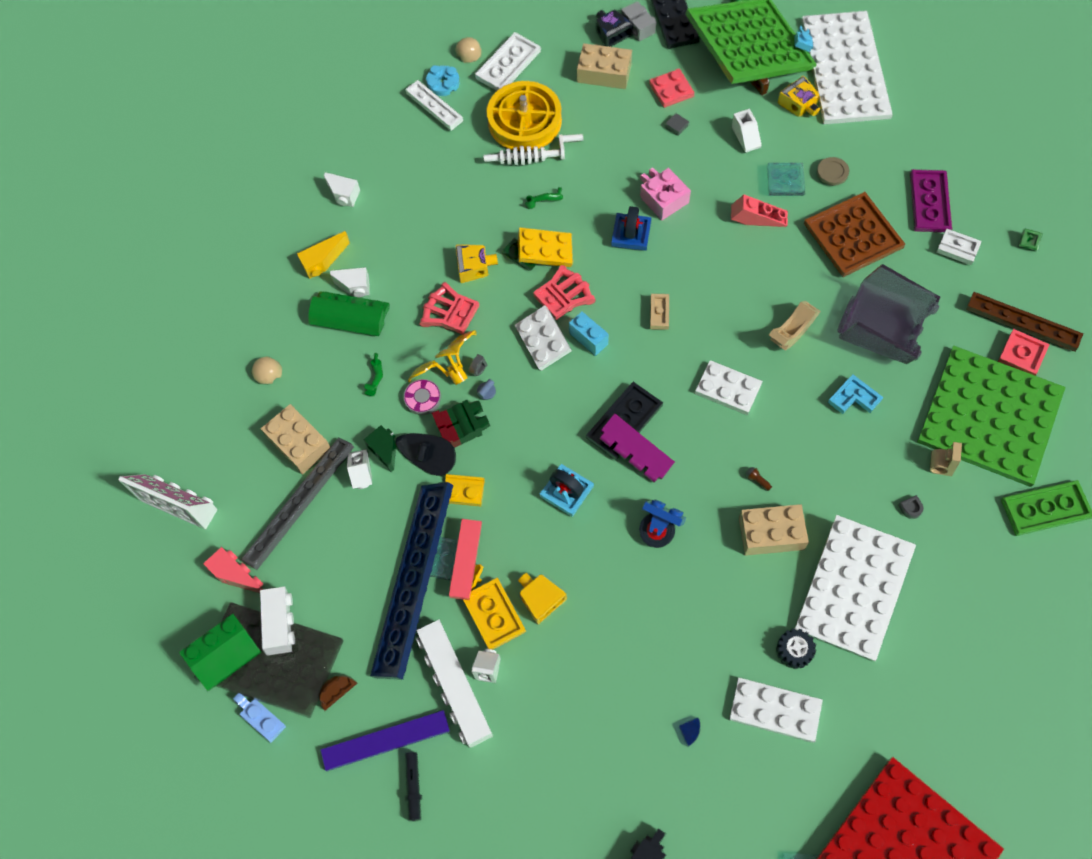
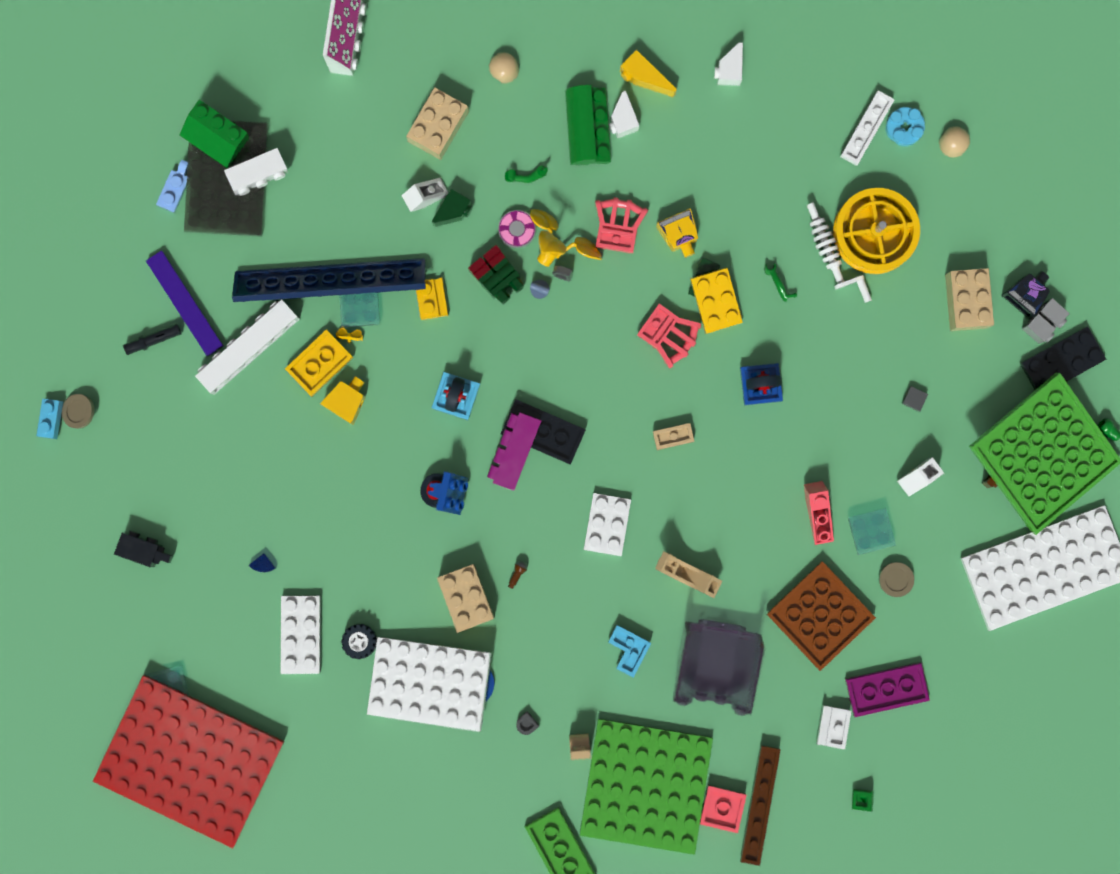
camera: 65 degrees right, 20 degrees up
(228, 571) = (294, 110): coral slope -> none
(297, 503) = (377, 149): dark grey tile -> none
(335, 689) = (215, 245): reddish brown plate -> none
(428, 452) = (458, 253): black shield -> none
(465, 559) = (360, 322): coral tile -> none
(486, 666) = (268, 371): white slope -> none
(508, 62) = (947, 191): white plate -> none
(543, 338) = (611, 328): white plate -> none
(588, 333) = (627, 372): medium azure brick -> none
(664, 192) = (828, 404): bright pink hinge -> none
(671, 88) = (963, 381): coral plate -> none
(800, 98) = (984, 525): yellow torso -> none
(803, 40) = (1064, 513): medium azure plate -> none

